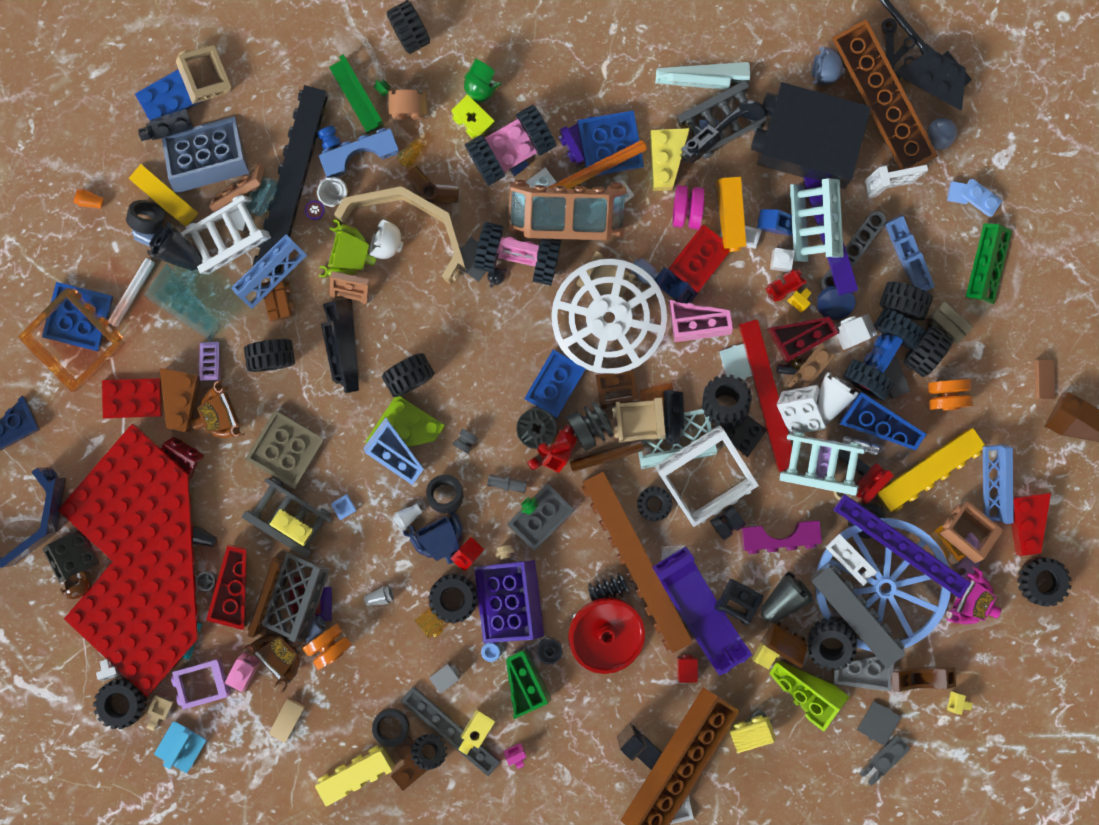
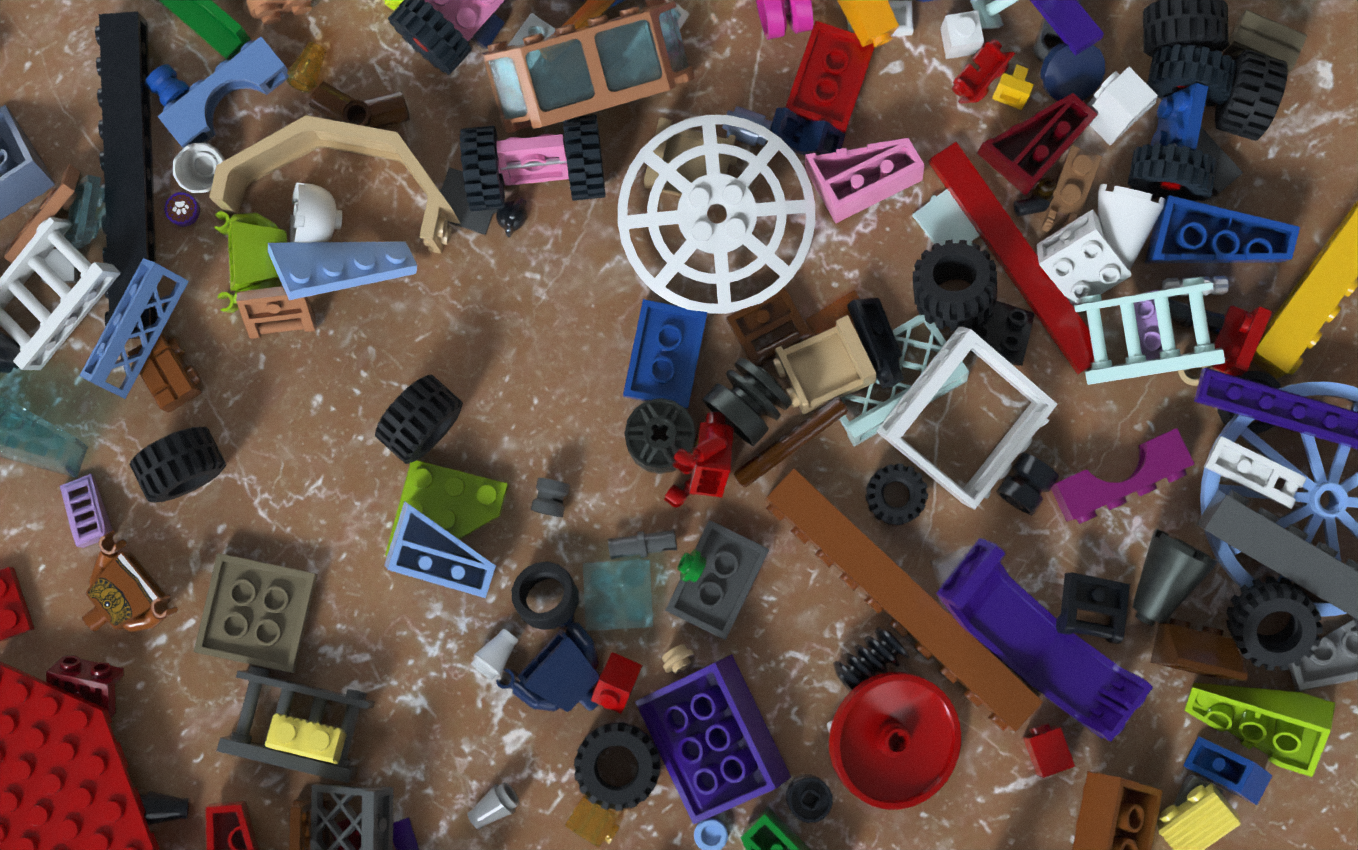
camera: 15 degrees left, 5 degrees down
(179, 398) = (52, 587): dark orange wedge -> none
(340, 343) = (293, 408): black wedge -> none
(343, 507) = (385, 676): light blue tile -> none
(391, 274) = (334, 266): none -> light blue wing
(484, 506) = (618, 595): none -> clear light blue plate
(765, 656) = (1169, 683): light yellow panel -> none
(779, 712) = (1228, 770): none -> blue slope
(950, 394) = (1311, 151): orange wheel -> none

